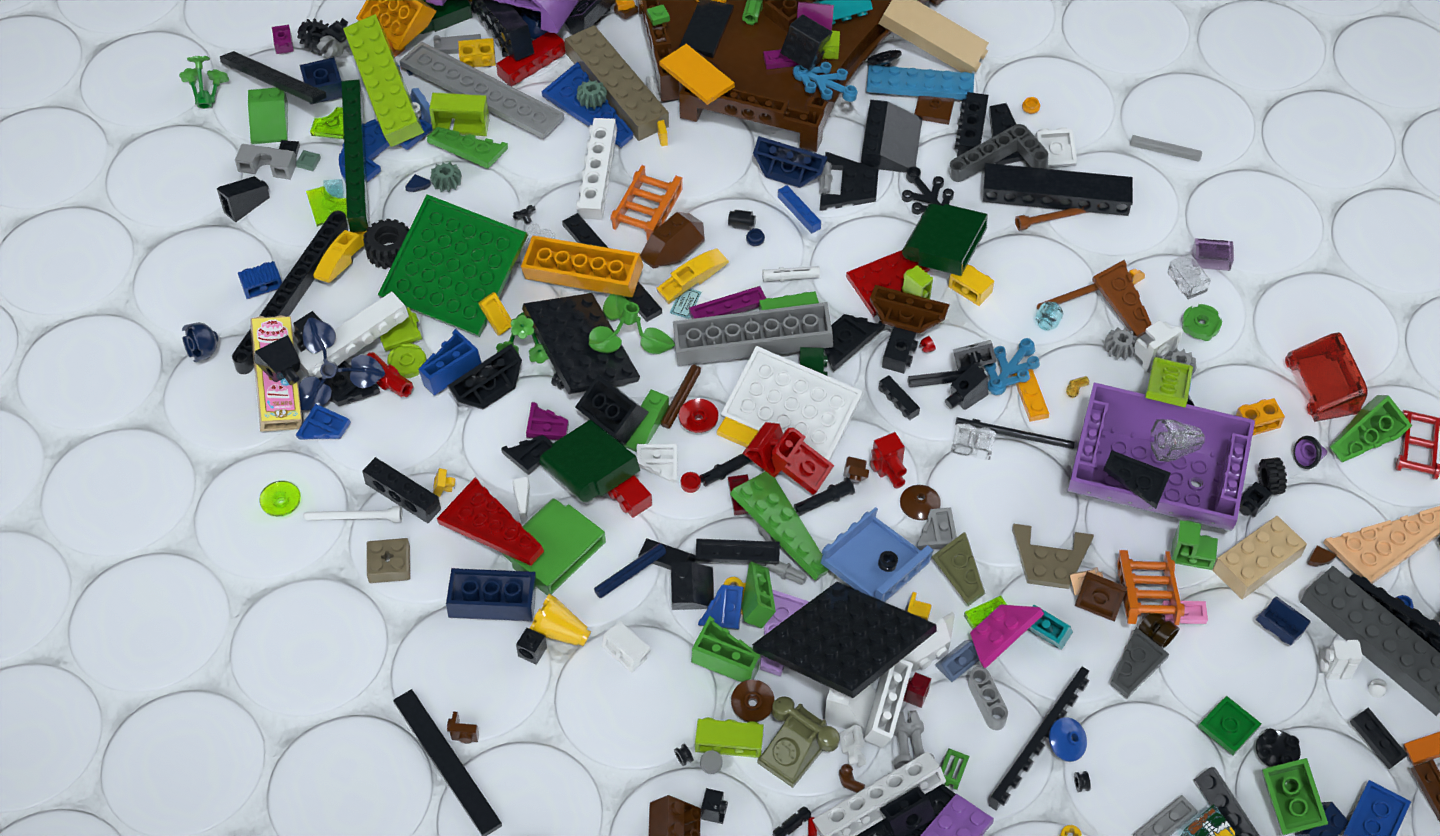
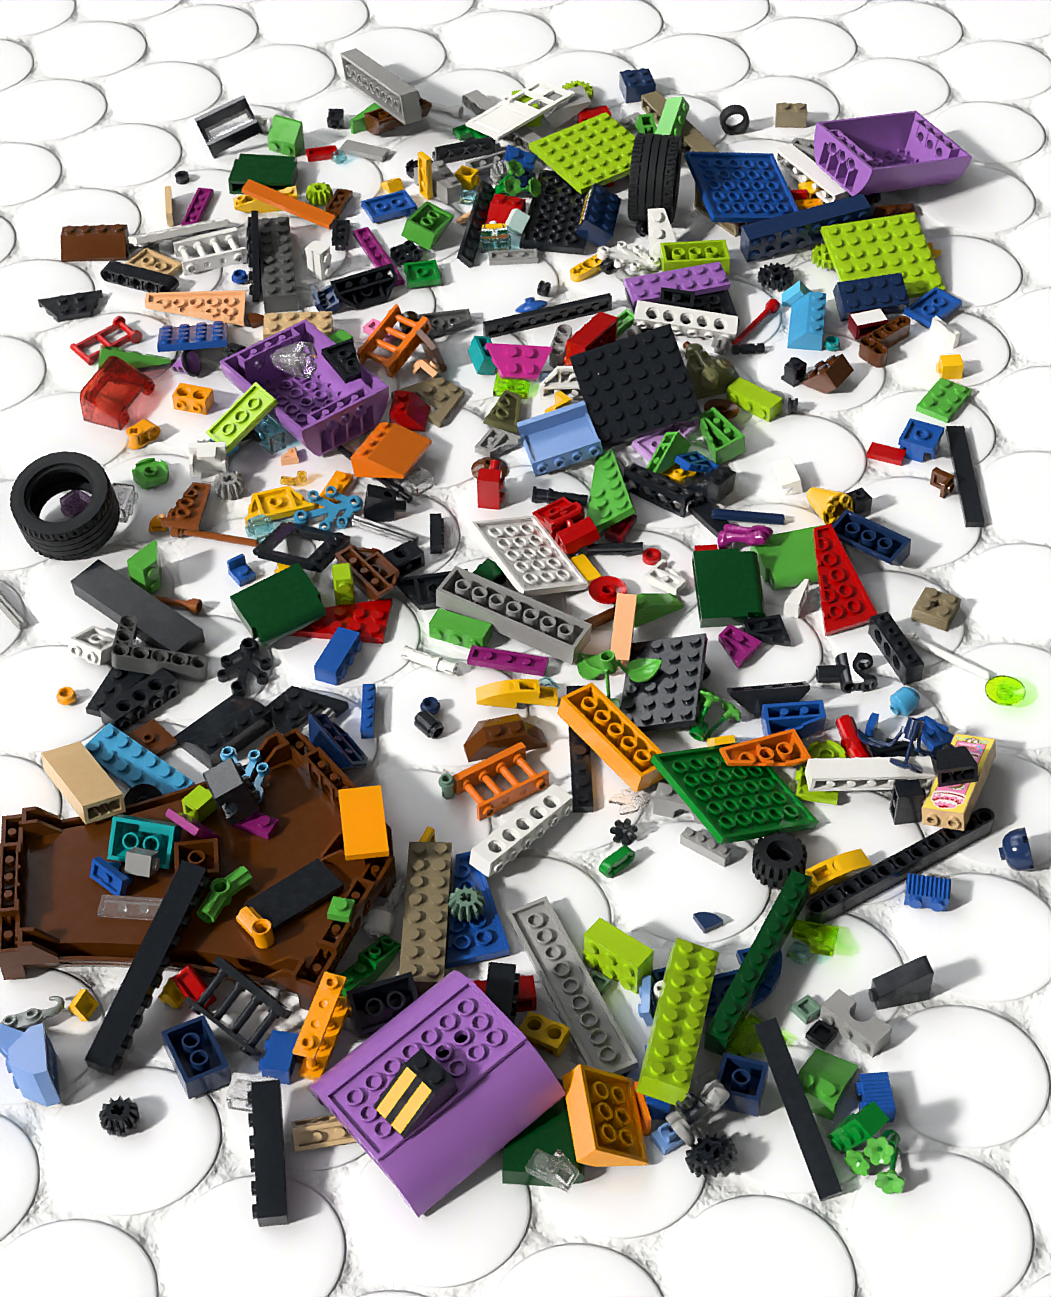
camera: 145 degrees left, 10 degrees down
(226, 122) = (876, 1088): none -> blue brick
(232, 85) = (857, 1128): none -> green arch
(282, 39) = (753, 1179): magenta brick -> none
(365, 440) = (904, 701): none -> dark azure head
(381, 402) = (872, 724): none -> blue tile
(432, 444) = (848, 672): none -> black connector
(437, 324) = (771, 750): none -> orange wedge
(442, 482) = (858, 639): yellow tile -> none
(445, 176) = (675, 906): sand green gear -> none
(468, 147) = (625, 917): bright green wing -> none
(512, 188) = (616, 861): none -> green beam
(514, 773) = (920, 439): none -> blue panel
(545, 746) = (886, 453): none -> red tile
(596, 526) = (750, 535): none -> magenta piece
(611, 409) = (679, 609): black brick -> none
(628, 31) = (370, 963): none -> green slope
(645, 65) = (379, 922): none -> white head
(648, 366) = (623, 627): none -> light nougat brick
(683, 171) = (446, 783): none -> sand green pin
(816, 804) = (722, 345): none -> light grey gear
(855, 469) = (522, 496): reddish brown bracket -> none
(864, 236) = (337, 656): none -> blue brick
(892, 560) = (554, 433): black bush -> none
(948, 697) = (596, 333): none -> red brick
(965, 315) = (317, 560): none -> black hinge
(979, 354) = (363, 520): black brick -> none
(1013, 443) = (389, 452): none -> orange slope
(1020, 272) = (240, 571): none -> blue bracket
(1051, 516) = (409, 411): none -> red slope
(1062, 348) = (277, 503): none -> yellow wing
(1085, 217) = (146, 568): none -> bright green slope
(1201, 239) = (54, 475): none -> black tyre
(1257, 354) = (142, 434): none -> light orange piece
(1261, 653) = (366, 288): none -> black wedge
(1305, 730) = (375, 251): none -> magenta tile
(1339, 478) = (192, 337): none -> blue plate

